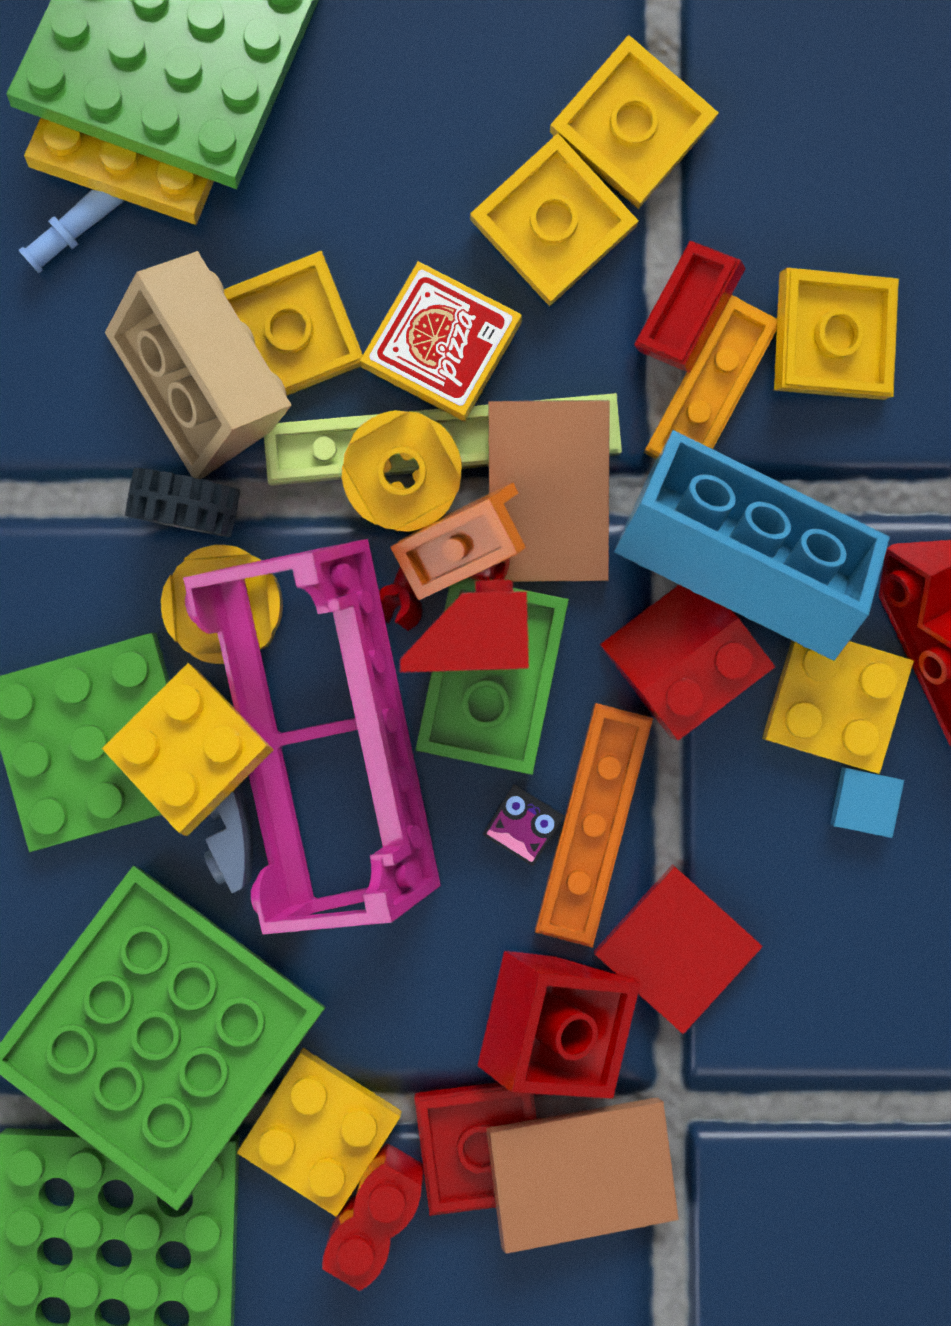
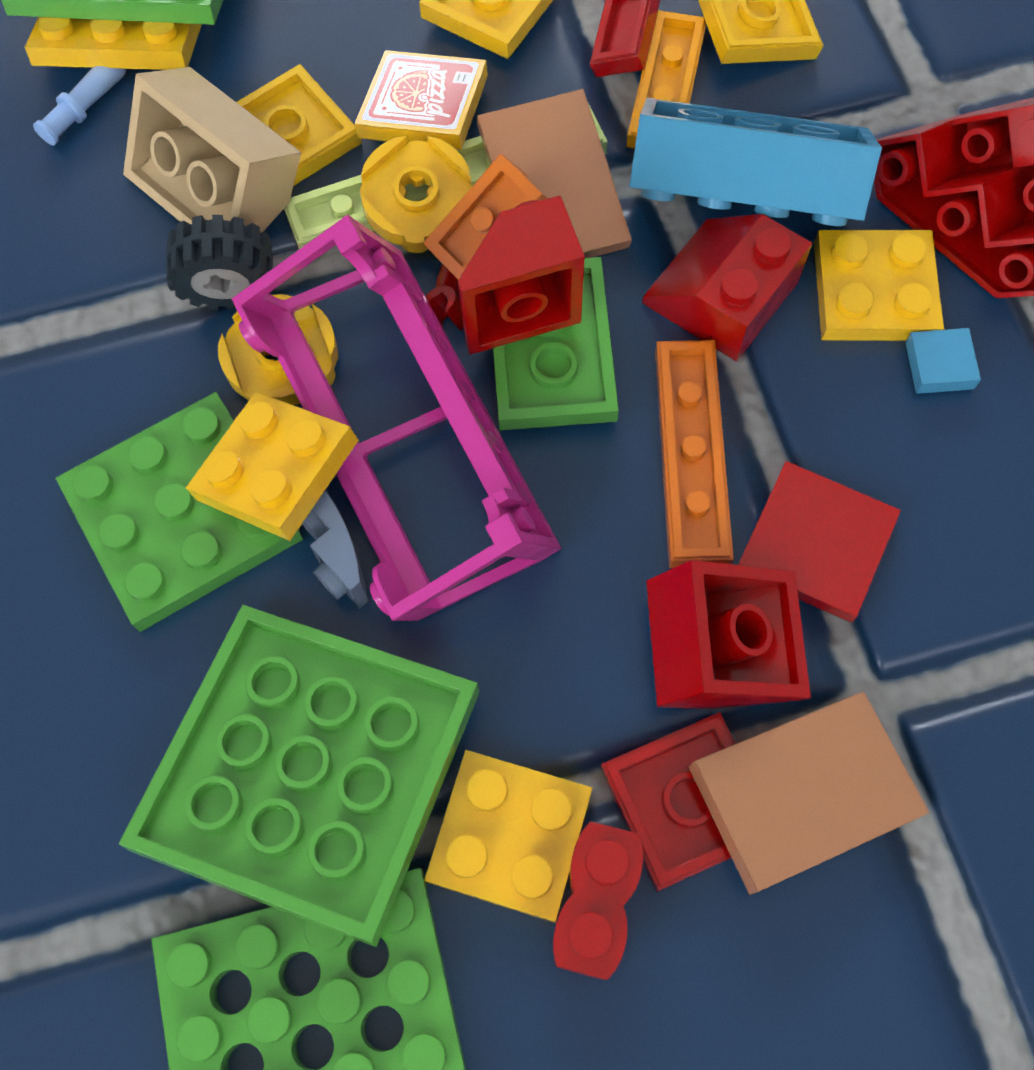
camera: 10 degrees left, 20 degrees down
(523, 824) = (624, 468): tile -> none

